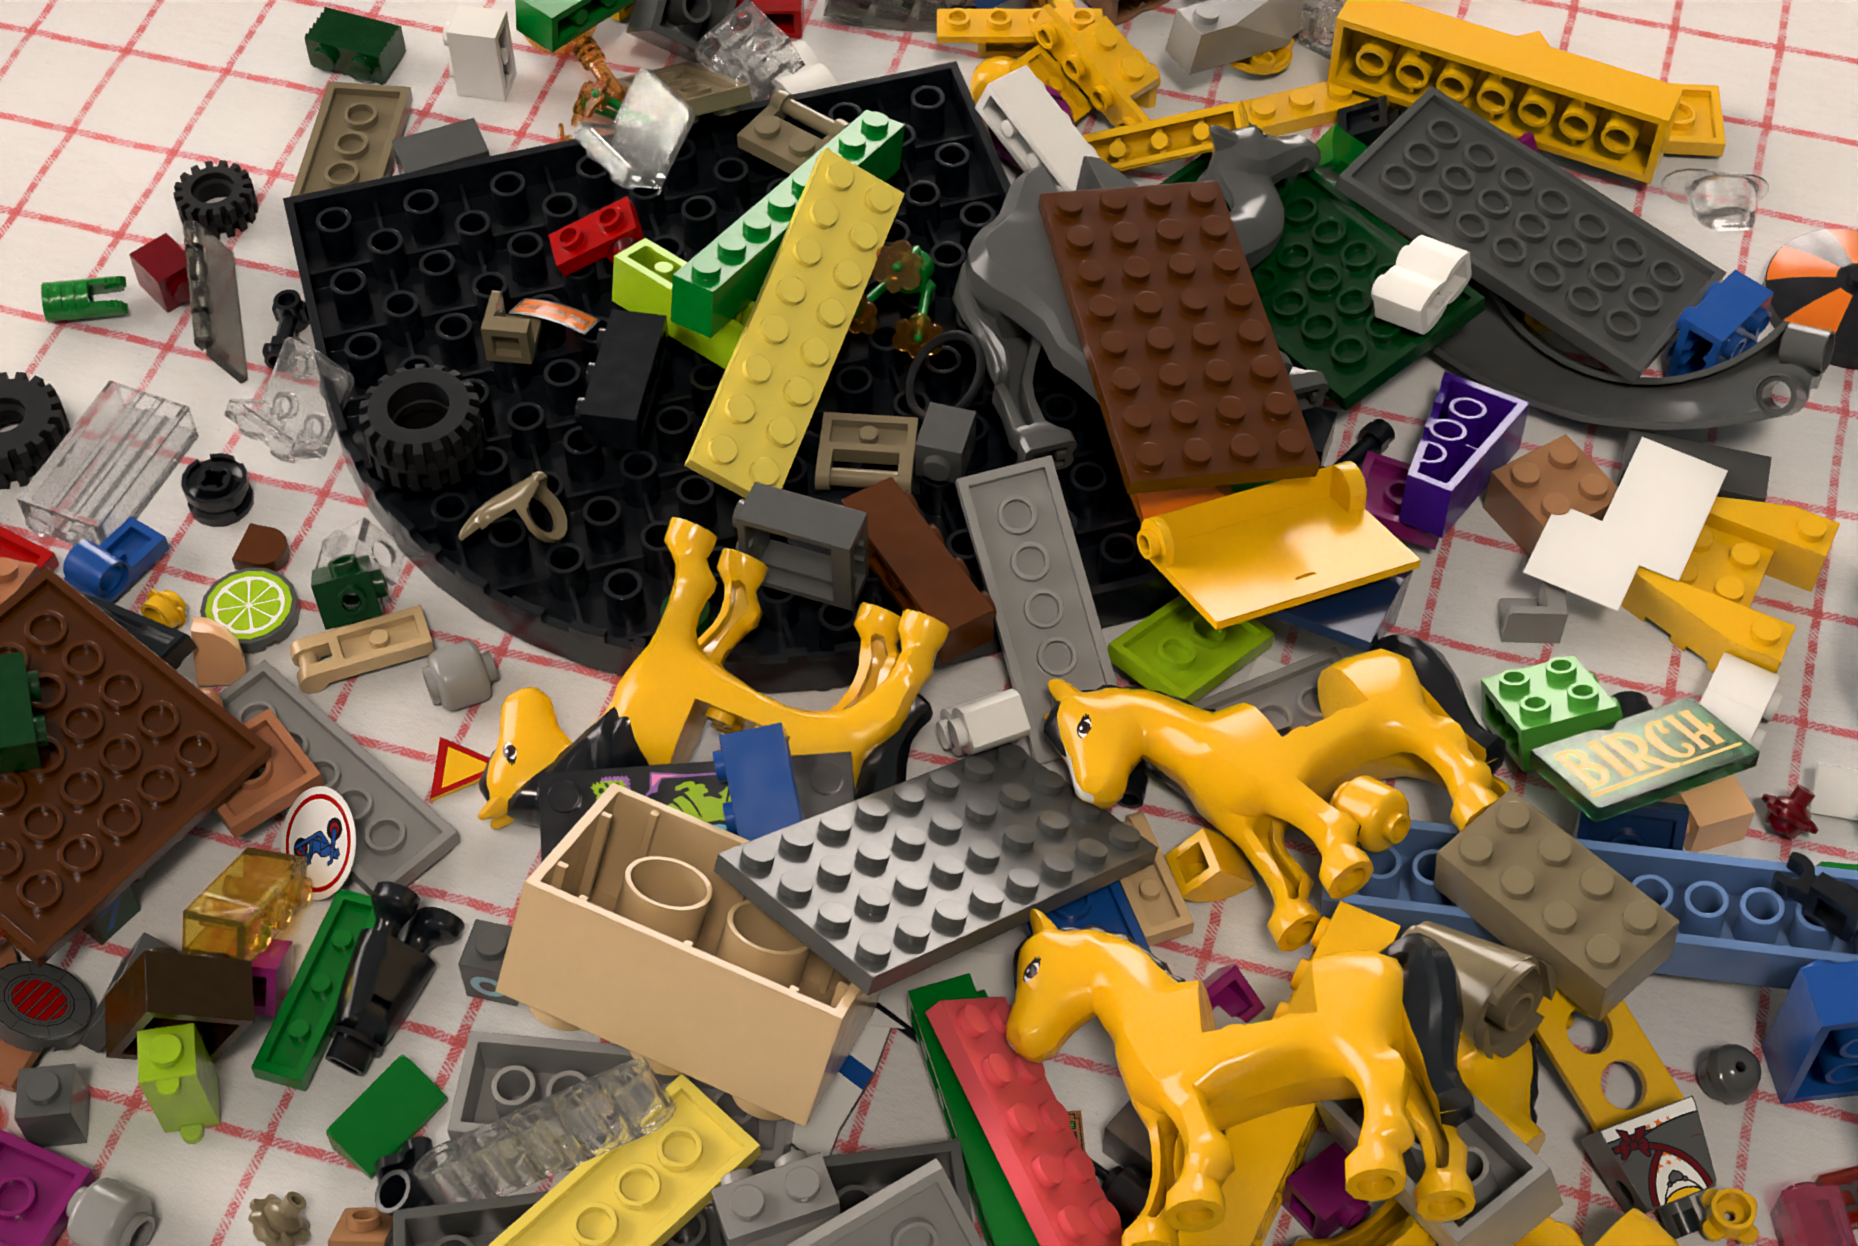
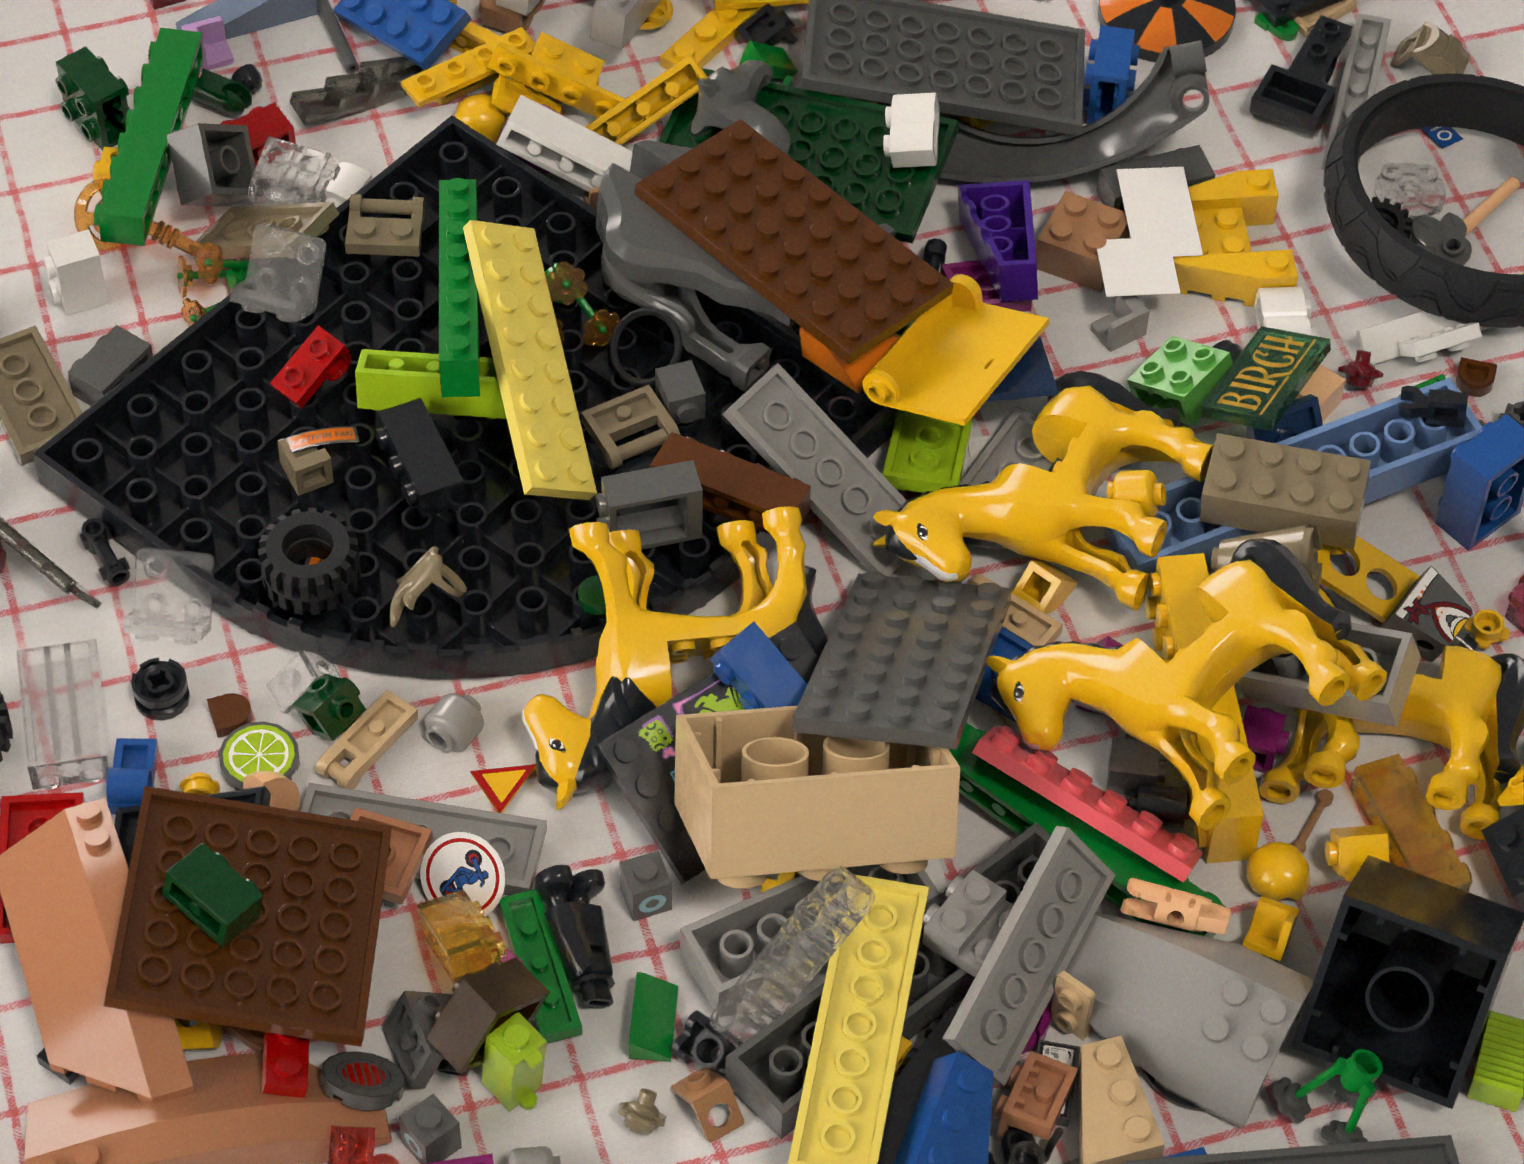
camera: 35 degrees left, 0 degrees up
(983, 723) = (844, 565): white brick -> none
(1730, 1073) = (1433, 546): dark grey piece -> none

